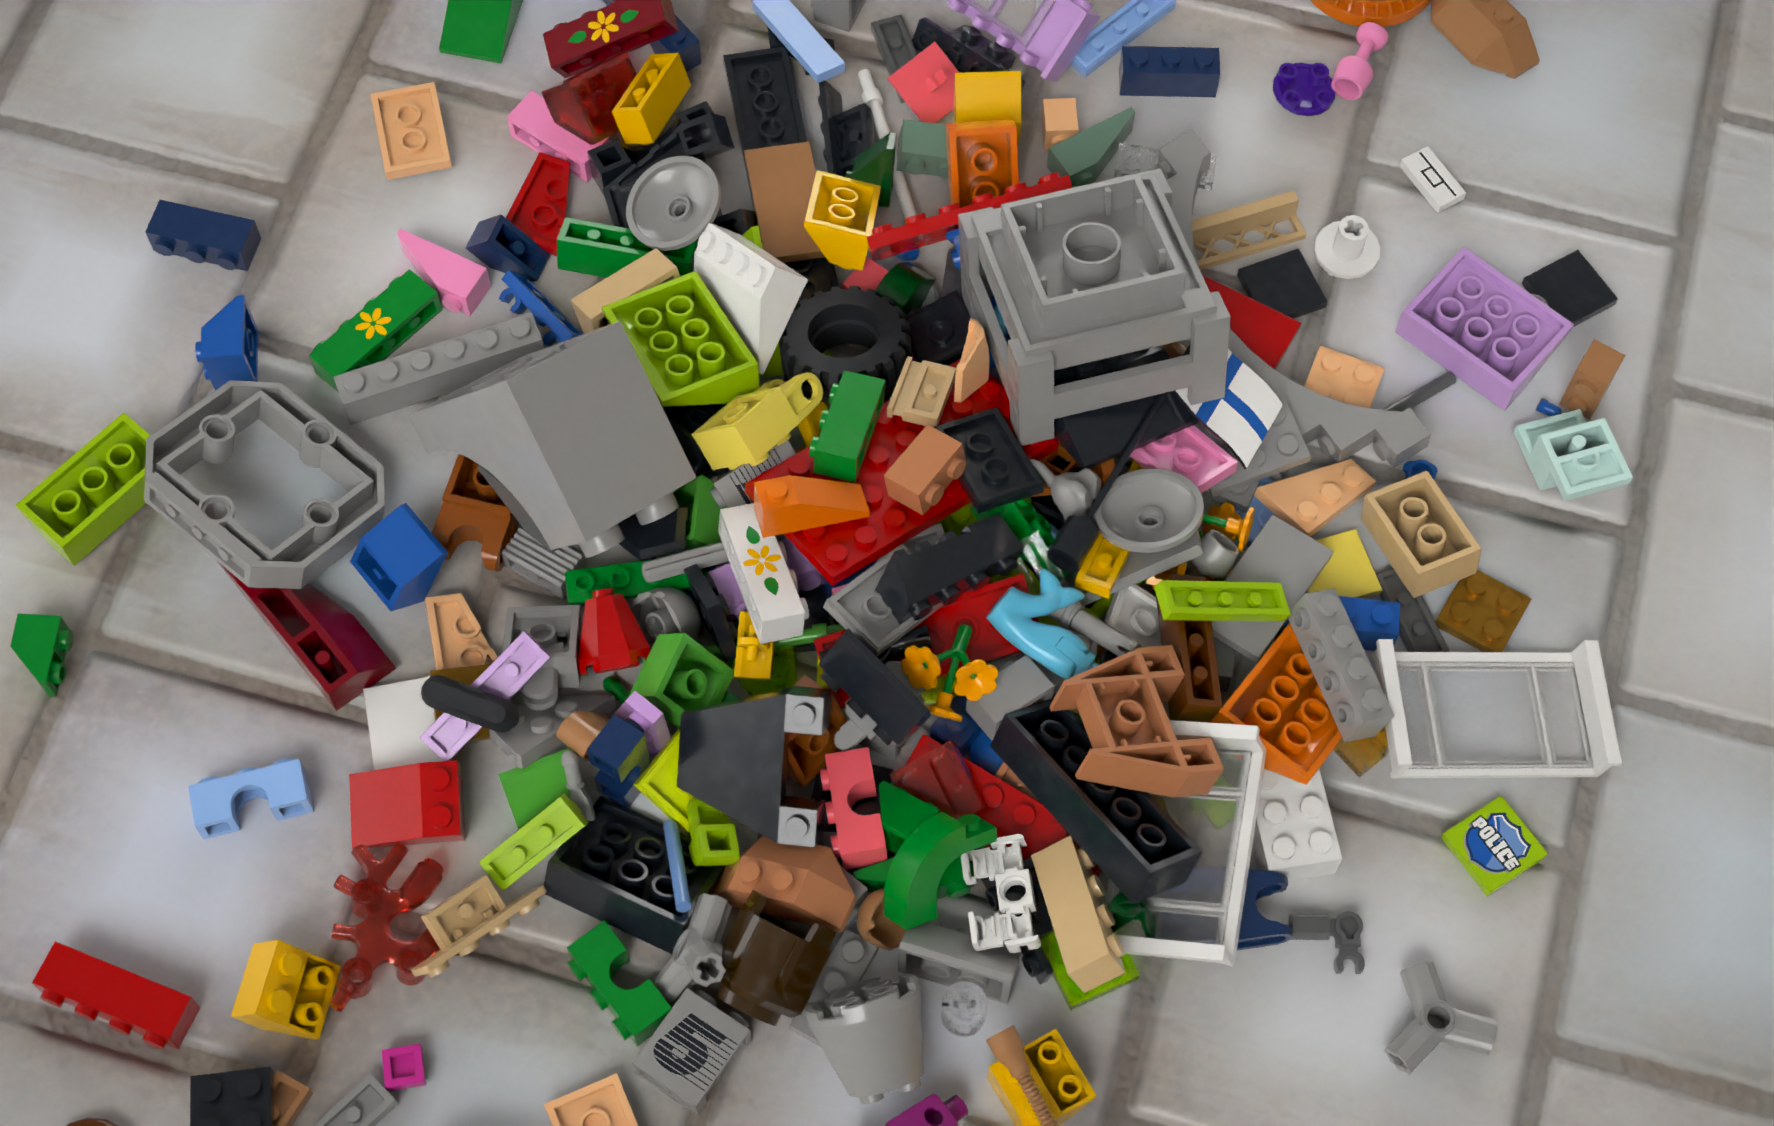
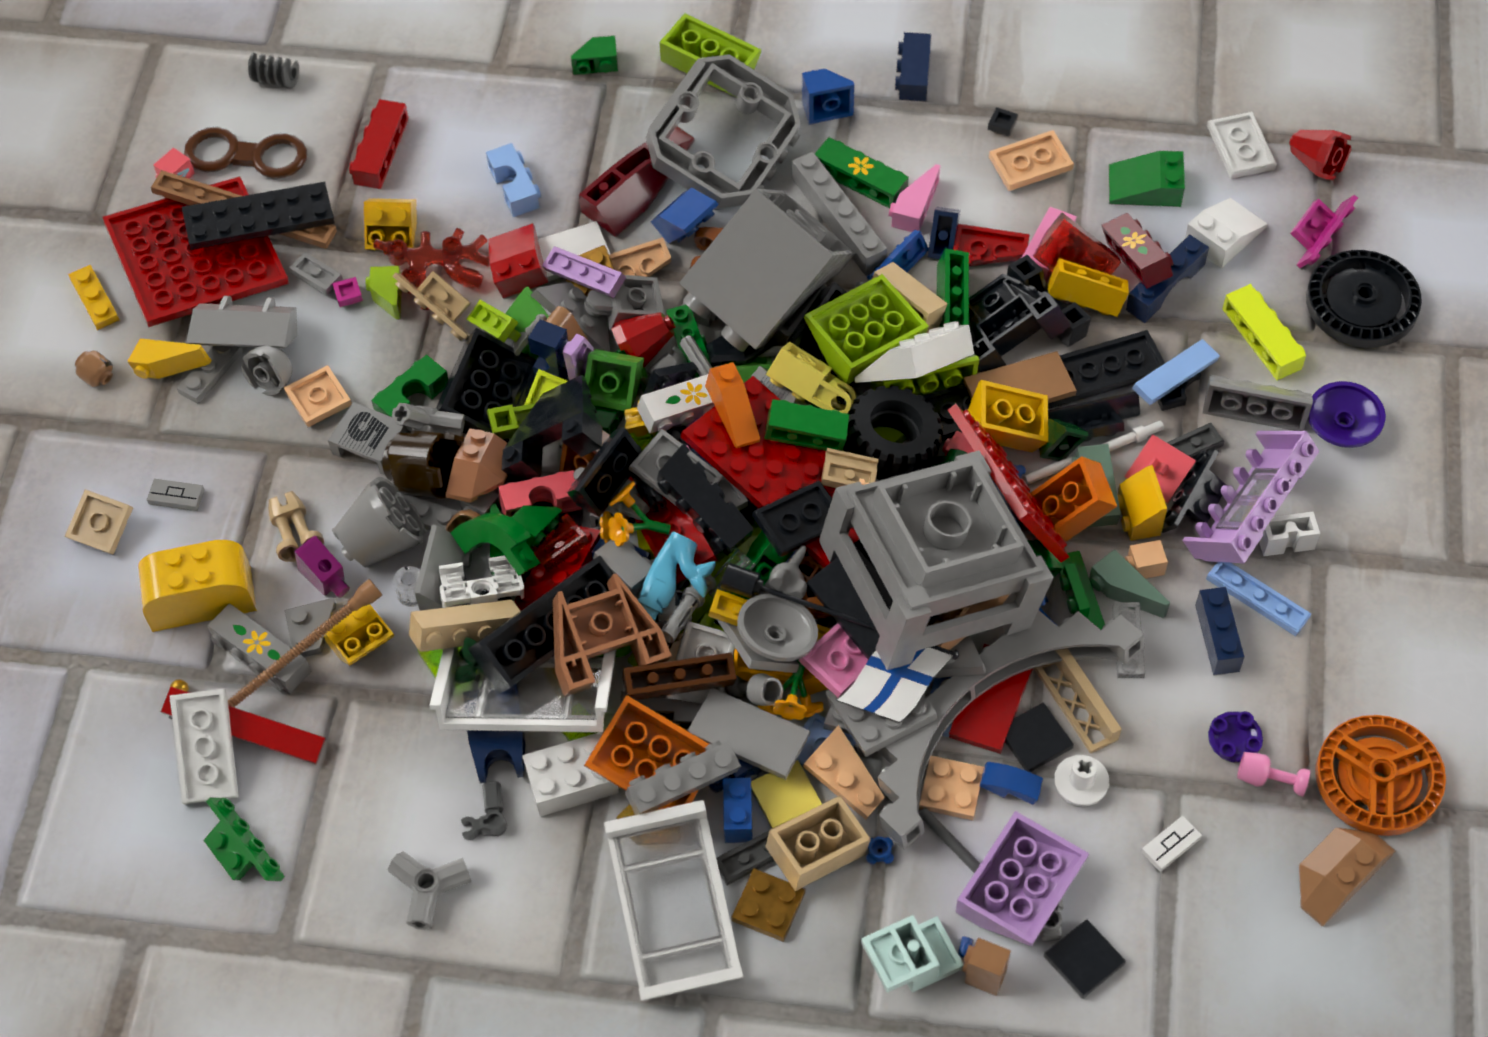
camera: 85 degrees right, 5 degrees down
(334, 150) = (1002, 121): none -> black plate
(417, 1005) = (384, 290): none -> lime slope
(470, 703) = (573, 260): black piece -> none
(664, 194) = (986, 305): light grey dish -> none
(677, 866) = (486, 403): medium blue bar -> none
(925, 470) = (773, 471): nougat brick -> none
(1222, 601) = (713, 686): lime plate -> none
(1344, 320) = (1008, 779): none -> blue slope
(1494, 845) = (572, 922): tile -> none

